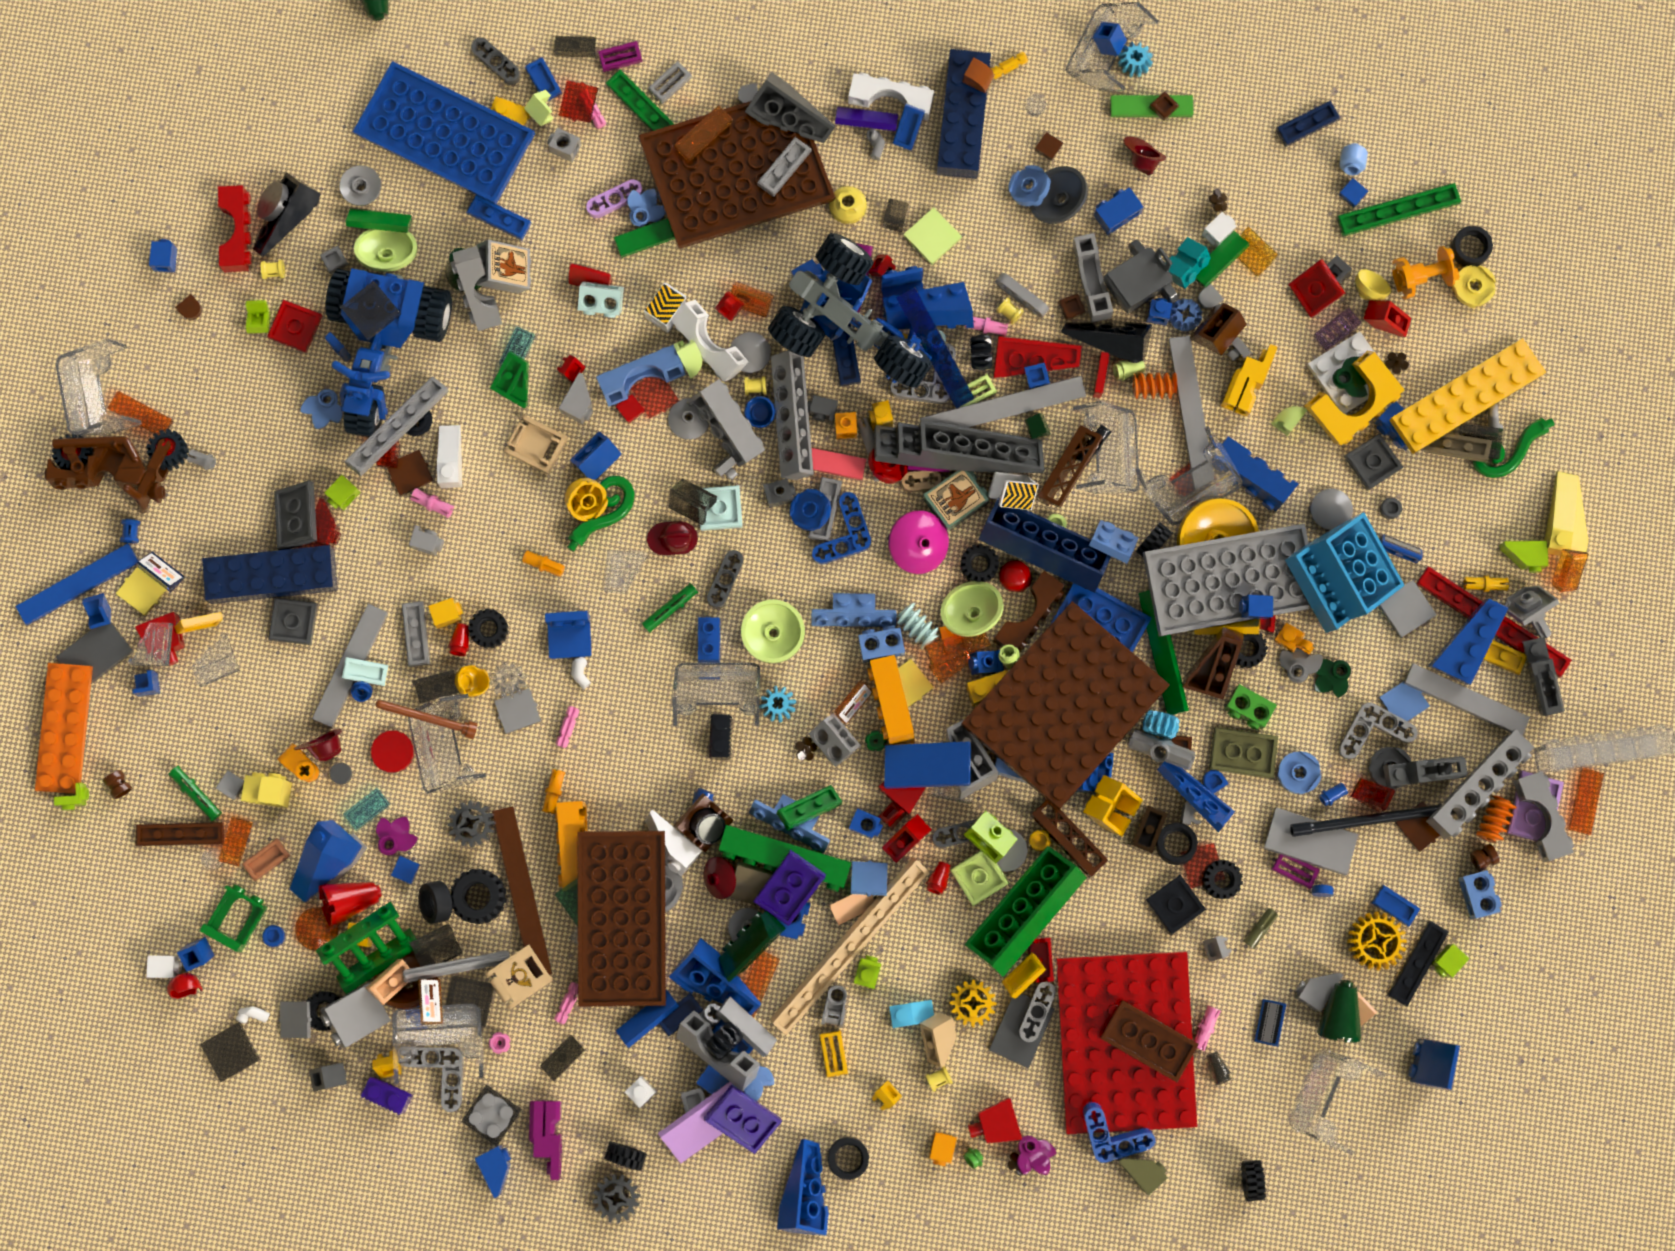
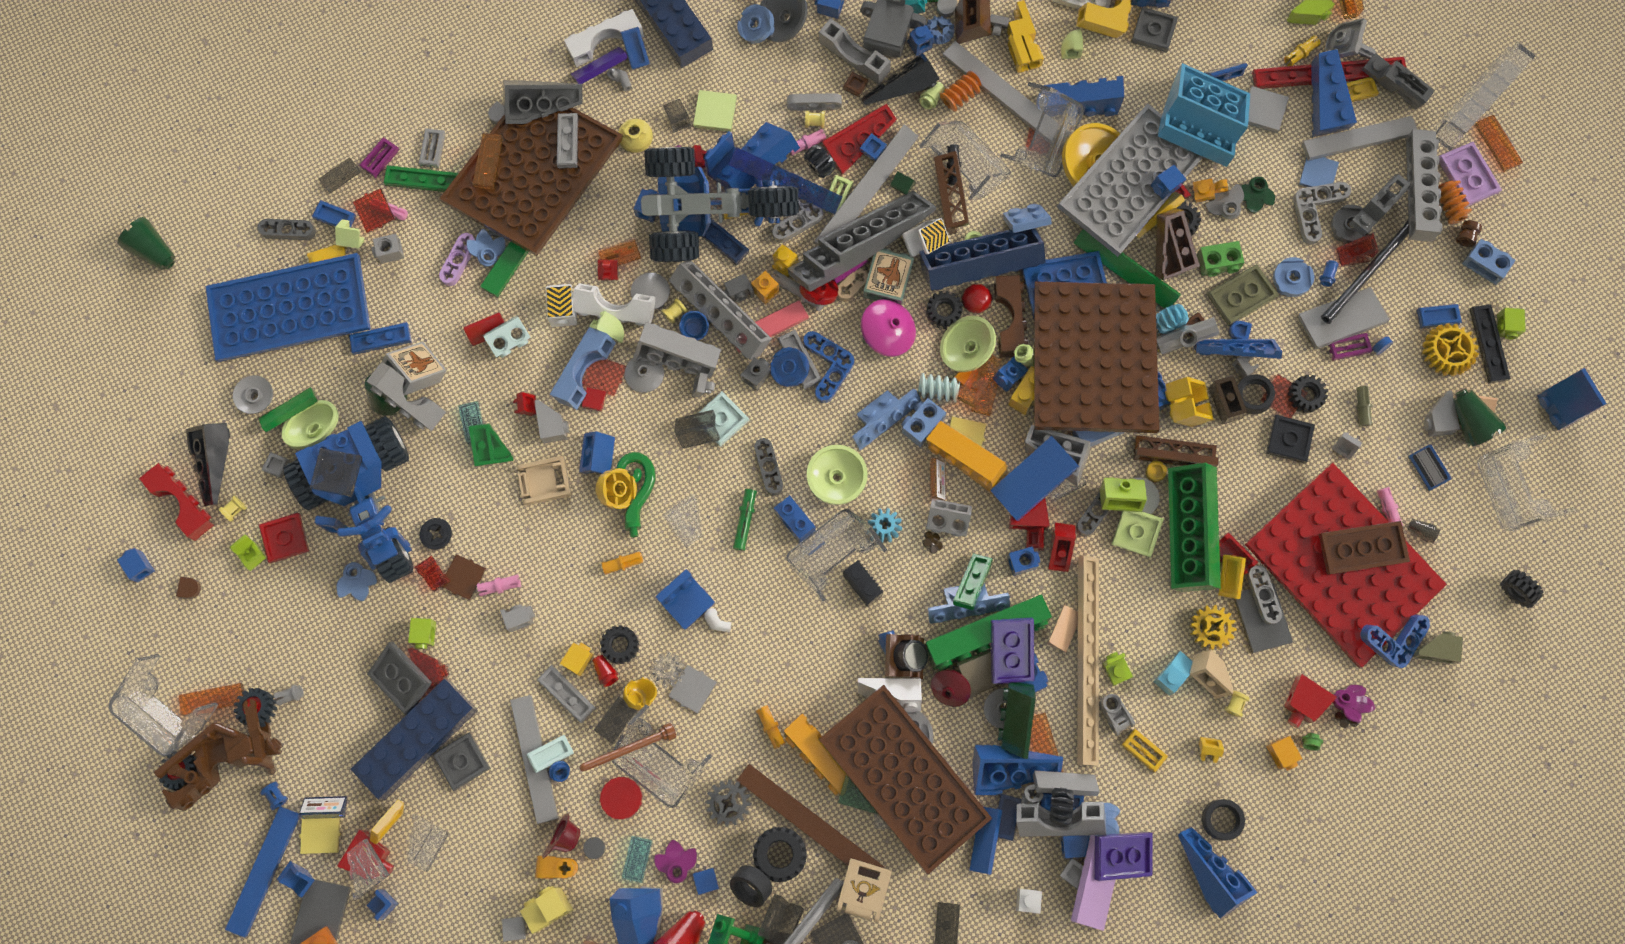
camera: 35 degrees left, 5 degrees down
(271, 201) = (191, 458): flat silver tile -> none
(396, 426) = (425, 549): light grey tile -> none
(449, 457) = (485, 540): white slope -> none
(567, 727) = (740, 670): bright pink axle -> none
(567, 1003) = (915, 879): bright pink axle -> none
(672, 538) = (703, 468): dark red piece -> none
(869, 878) = (1061, 598): medium blue piece -> none
(870, 741) = (978, 490): green plate -> none
(939, 878) = (1110, 559): red cone -> none
(1101, 375) = (917, 113): red tile -> none
(1155, 539) = (1054, 194): black tyre -> none
(1331, 508) = (1154, 82): light grey dish -> none
(1391, 508) = (1193, 51): dark grey tile -> none
(1418, 831) = (1408, 252): reddish brown piece -> none
(1554, 841) = (1504, 182): light grey arch -> none

